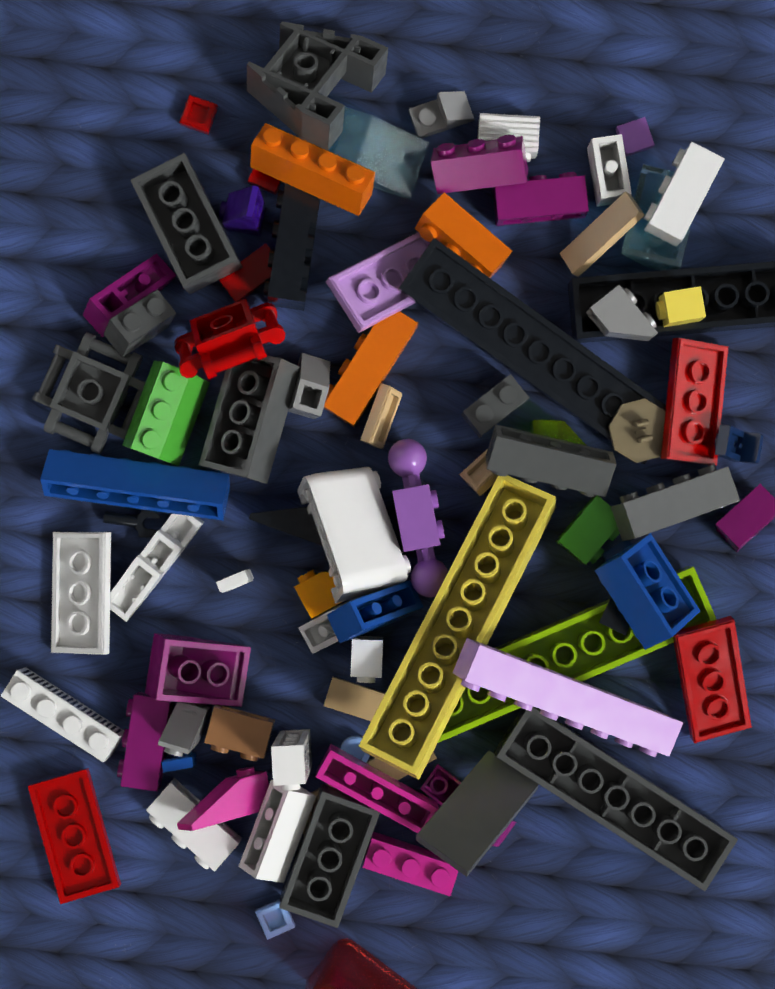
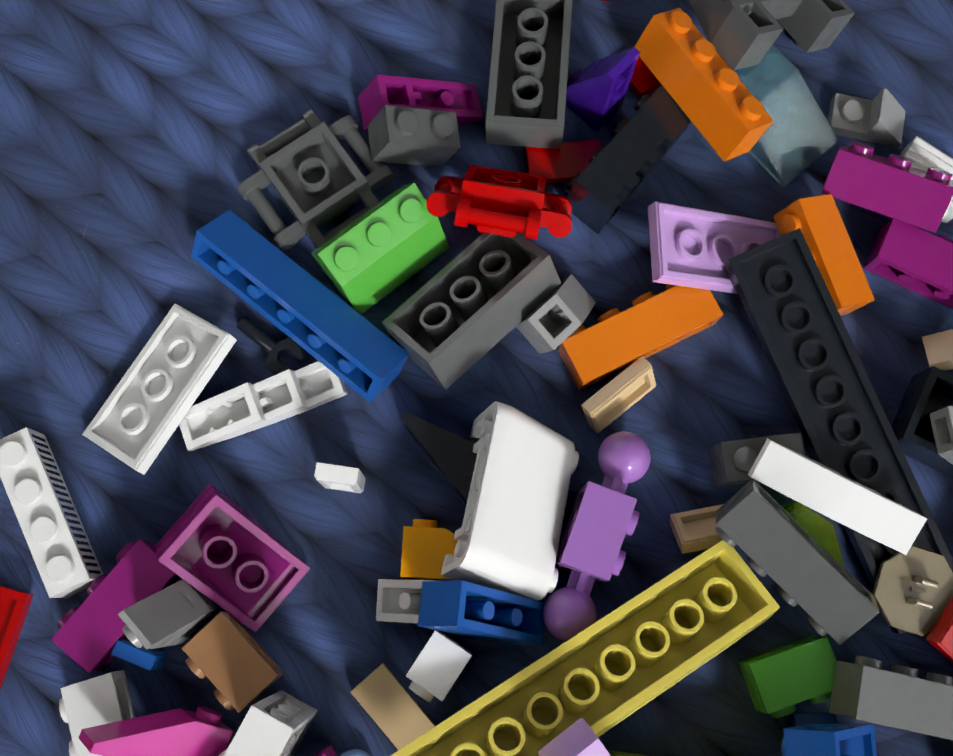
camera: 25 degrees right, 10 degrees down
(554, 404) = (837, 496): none -> white slope

